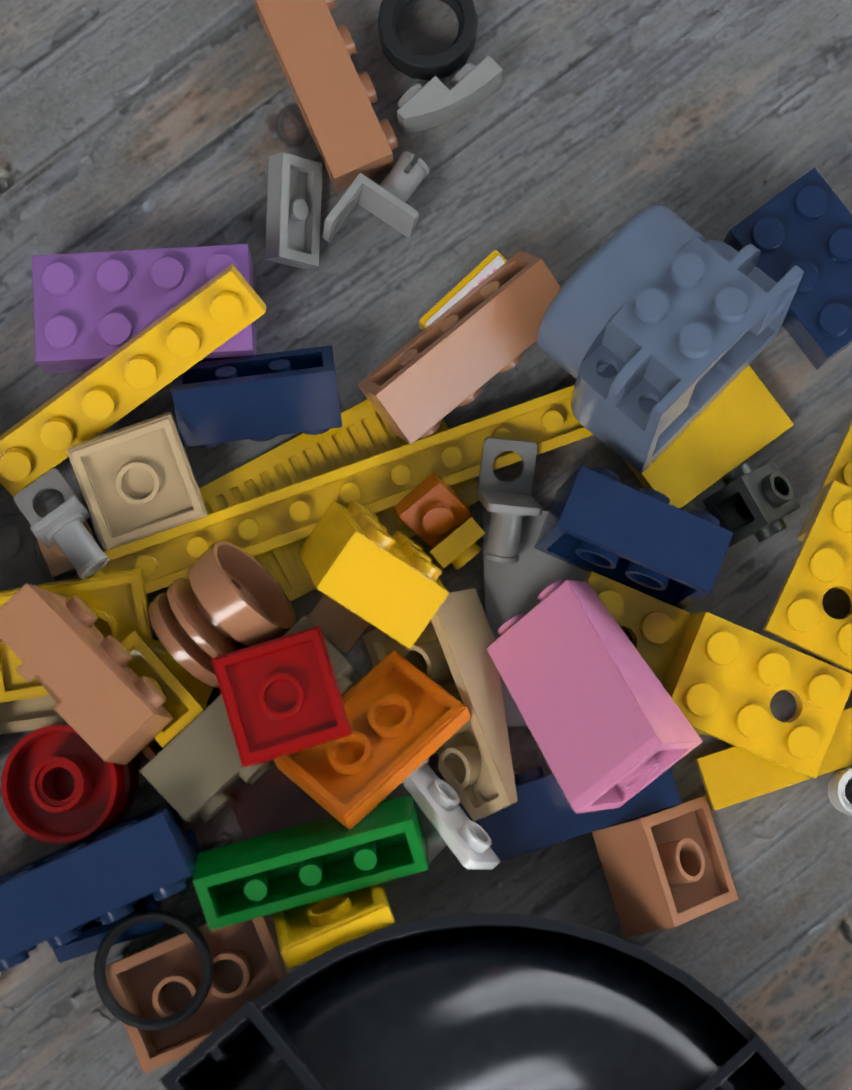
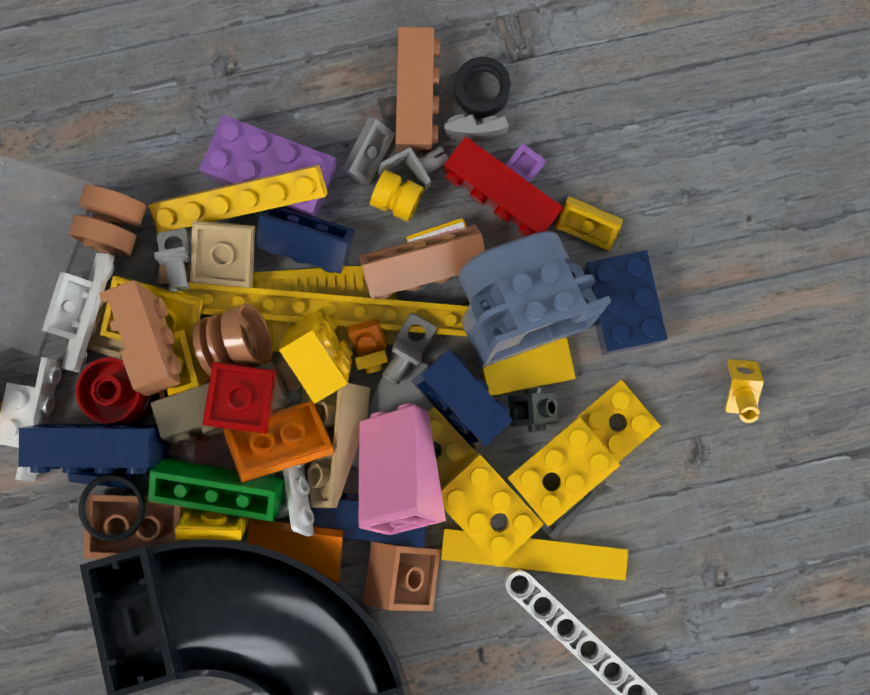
camera: 25 degrees right, 0 degrees up
(373, 261) = (396, 196): none -> yellow wheel
(517, 885) = (319, 551): none -> orange tile
(535, 176) = (501, 189): none -> red brick
(553, 120) = (526, 163): none -> medium lavender plate
(698, 168) = (589, 223): none -> yellow slope

